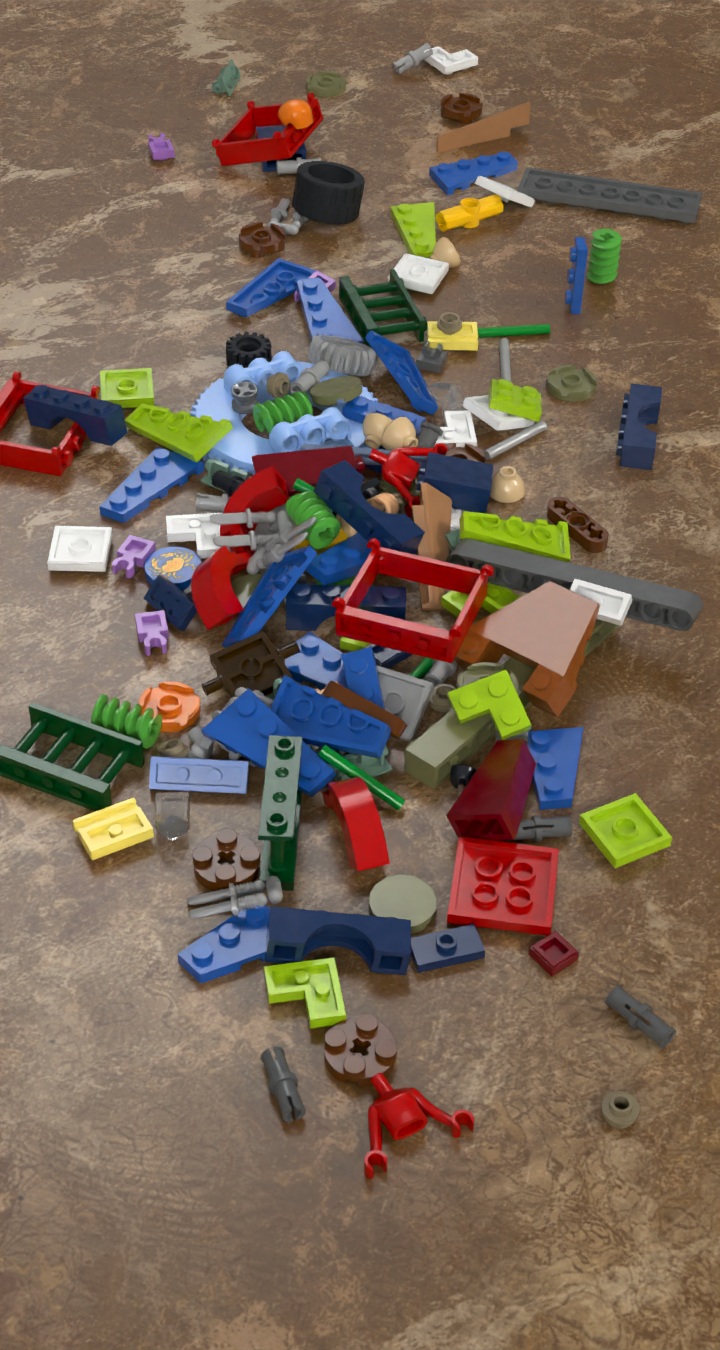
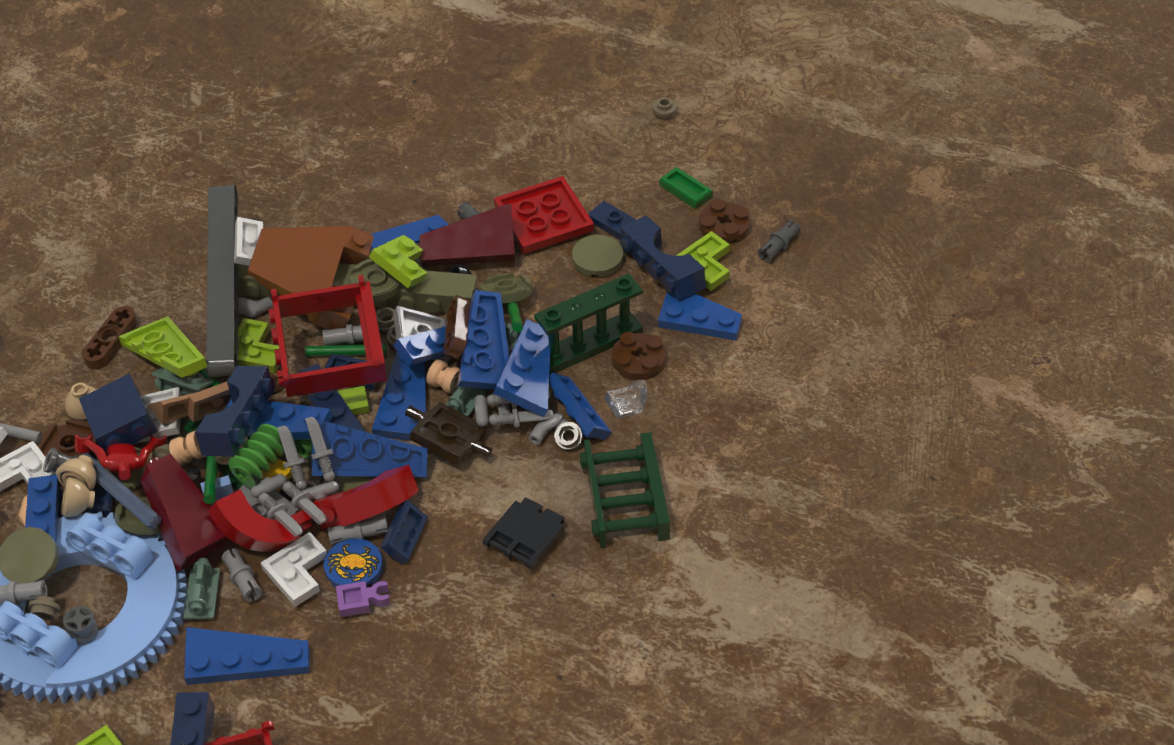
camera: 120 degrees left, 5 degrees up
(80, 548) = (378, 642): white plate -> none
(93, 676) = (526, 532): none -> black plate
(113, 828) = (668, 426): light yellow plate -> none
(126, 721) = (564, 475): bright green piece -> none
(152, 630) = (445, 528): medium lavender plate -> none
(175, 704) = (518, 472): orange tile -> none
(178, 431) = (158, 657): lime wing -> none
(226, 482) = (221, 566): black pin -> none
(273, 890) = (681, 316): light grey piece -> none
(282, 409) = (95, 572): bright green piece -> none
(359, 823) = (556, 287): red arch -> none
(403, 1115) = (753, 182): red piece -> none
(407, 796) = (511, 288): none -> olive tile
(452, 1049) = (685, 188): none -> green tile
(553, 953) = (576, 176): dark red tile -> none
(625, 830) = (446, 180): lime plate -> none
(657, 1031) = (592, 122): dark grey pin -> none

